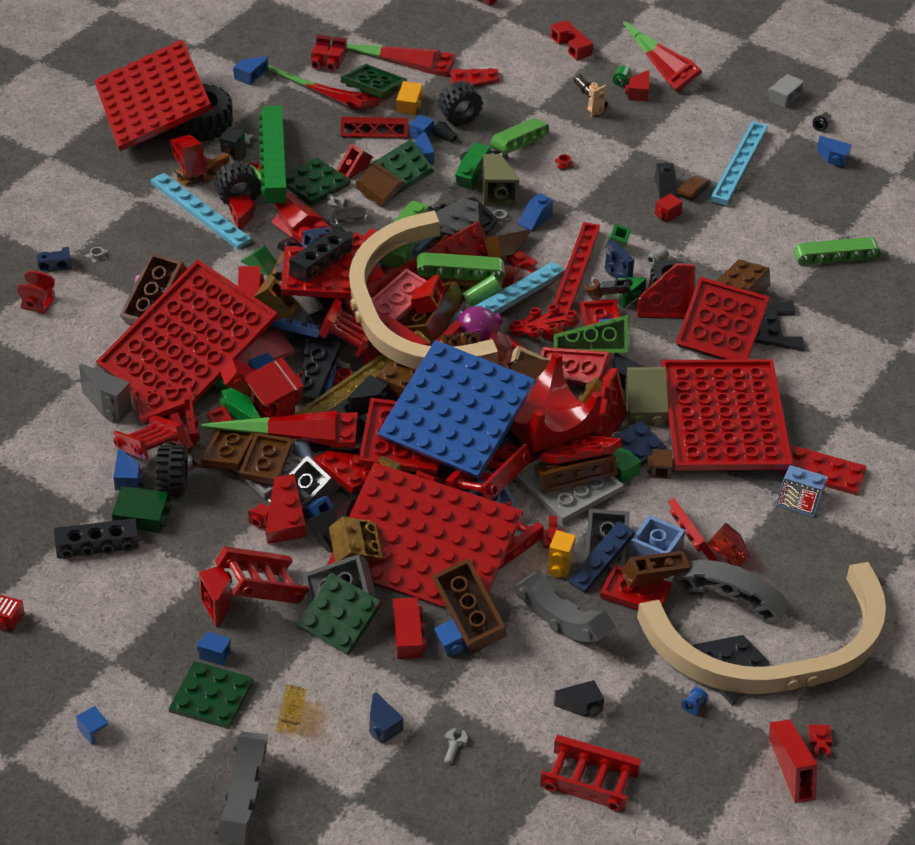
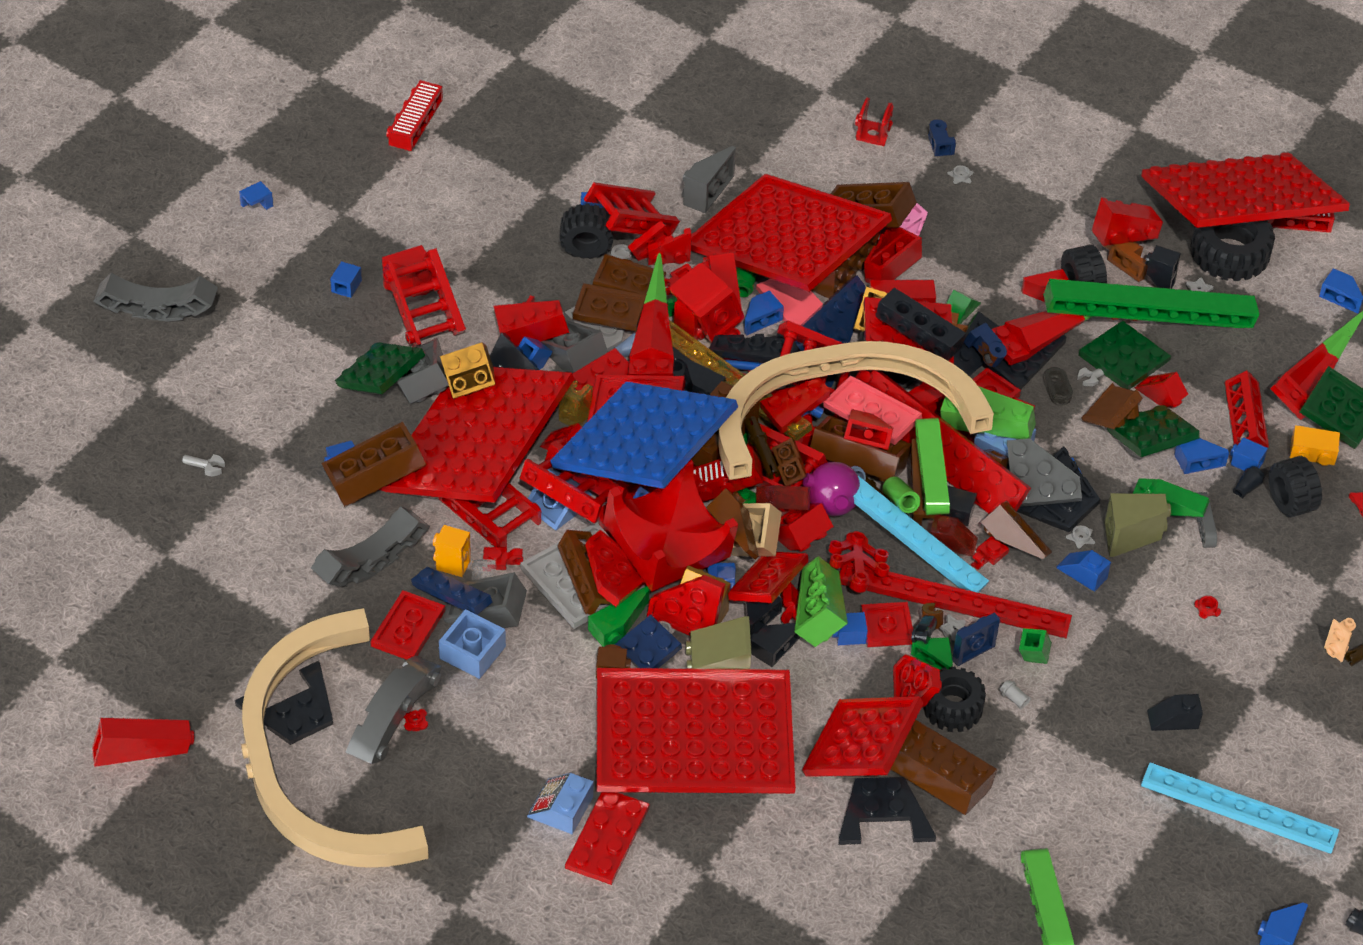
camera: 90 degrees right, 5 degrees up
(96, 538) = (502, 189): black brick -> none
(144, 505) = (541, 220): dark green brick -> none
(160, 401) = (701, 221): red wing -> none
(201, 211) = (1042, 260): medium azure plate -> none
(211, 695) = (291, 282): dark green plate -> none
(291, 708) = (260, 332): clear yellow hinge -> none
(384, 720) = (241, 404): dark blue slope -> none
(408, 628) = (359, 424): red brick -> none
(519, 136) = (1240, 550): bright green beam -> none
(580, 699) = (248, 565): black slope -> none
(597, 756) = (161, 581): red fence -> none
(653, 568) = (419, 627): reddish brown slope -> none
(668, 207) = (1116, 711): red brick -> none
(691, 531) = (486, 680): red wing -> none
(693, 186) = (1169, 742): reddish brown slope -> none
(694, 700) = (239, 670): blue bush -> none
(730, 545) = (470, 713): clear red slope -> none
(821, 738) = (175, 780): red plate -> none

